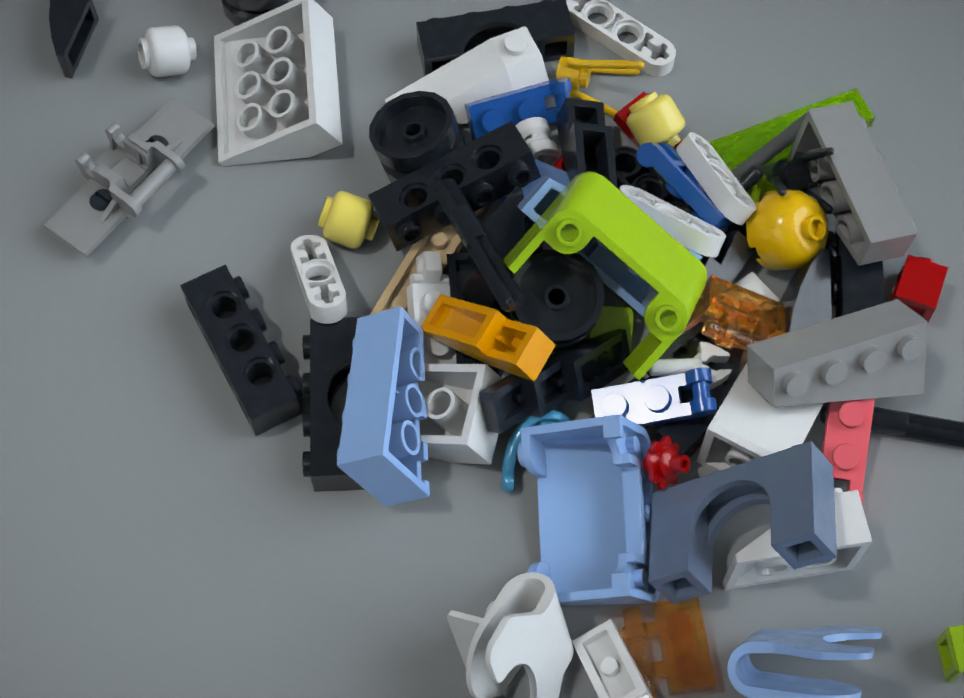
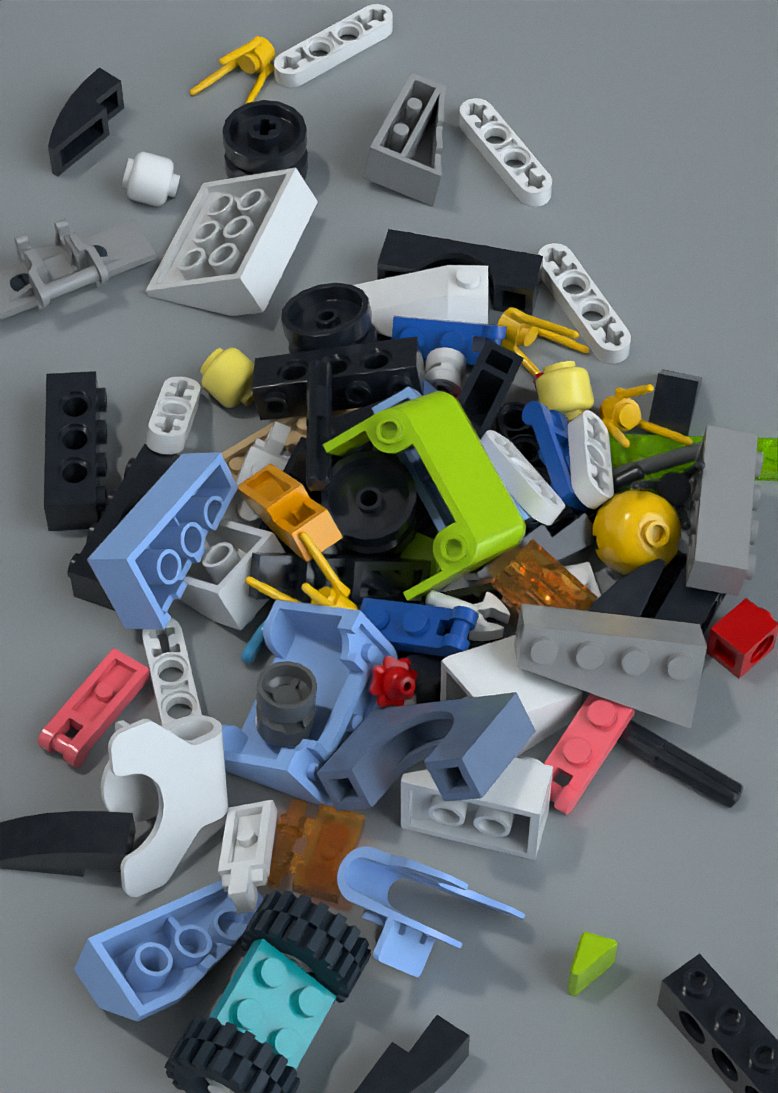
camera: 25 degrees right, 10 degrees down
(398, 595) = (94, 707): none -> coral plate
(458, 551) = (170, 693): none -> white beam
(562, 409) = (325, 596): none -> yellow plant
(581, 524) = (285, 703): none -> dark grey wheel
(709, 121) = (623, 414): none -> yellow plant
(741, 93) = (674, 401): none -> black slope

